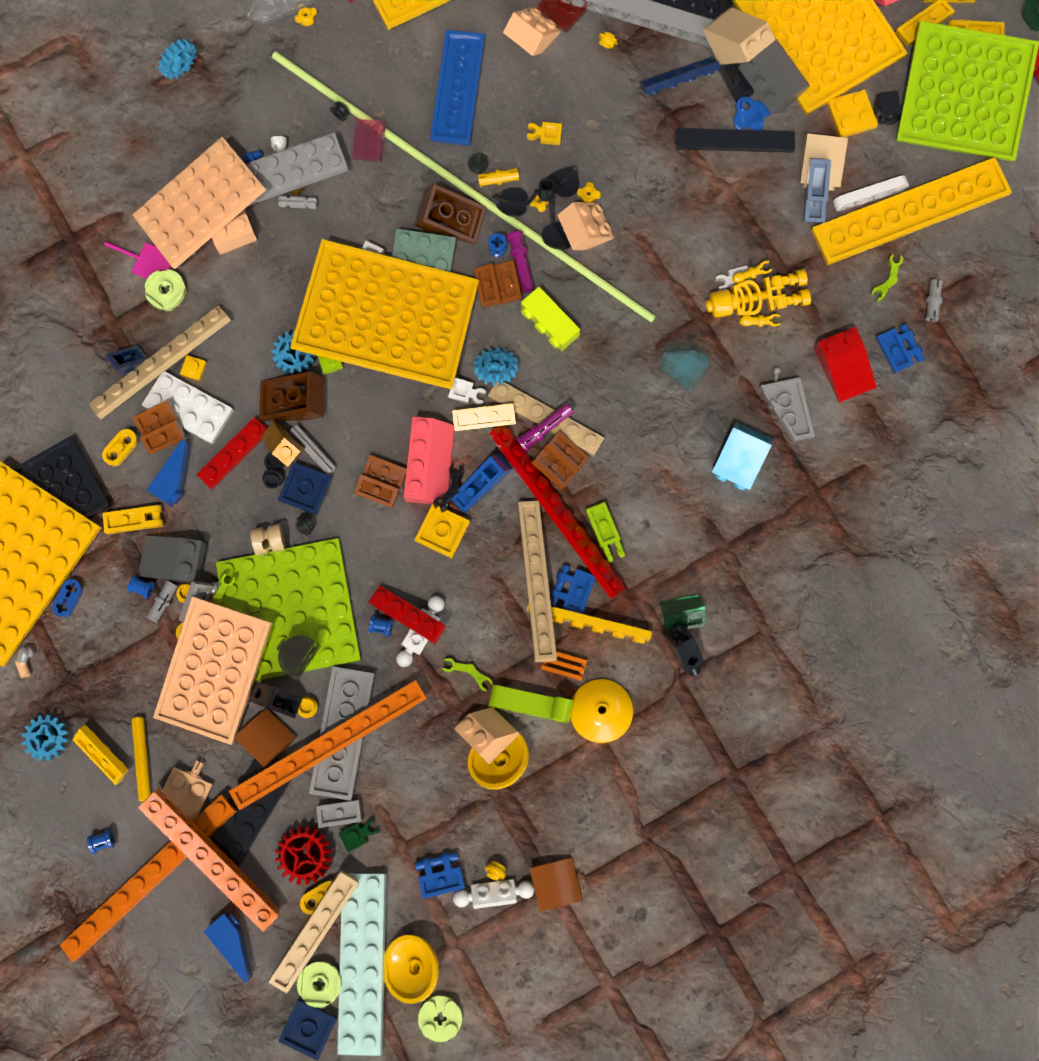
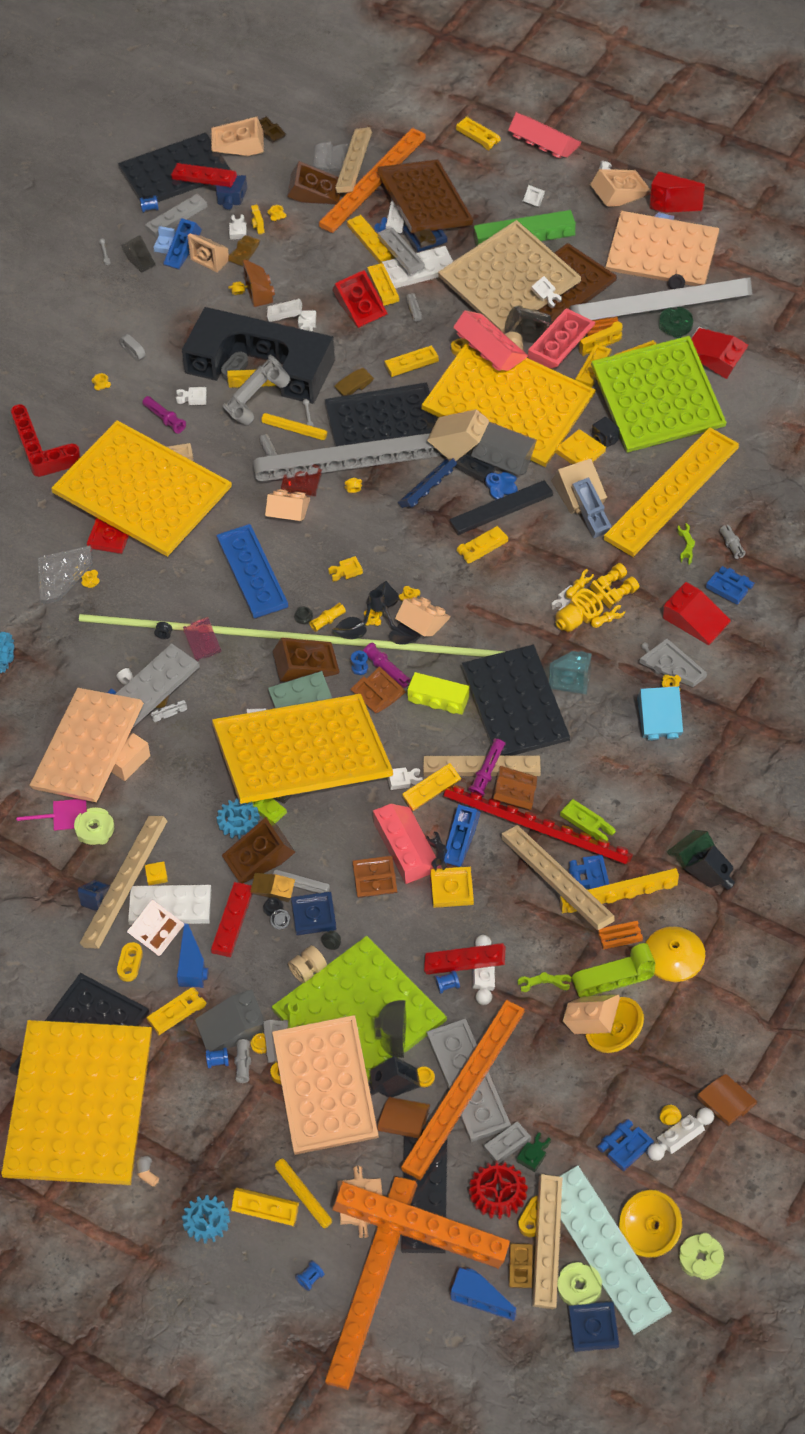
camera: 30 degrees left, 25 degrees down
(63, 596) = (159, 1101): blue beam -> none
(282, 936) = (521, 1265): none -> pearl gold slope
(495, 366) = (416, 745): dark azure gear -> none
(617, 366) = (516, 700): none -> black plate
(691, 173) = (482, 544): none -> yellow plate
(768, 428) = (668, 679): none -> yellow plate
(870, 193) = (632, 493): white beam -> none

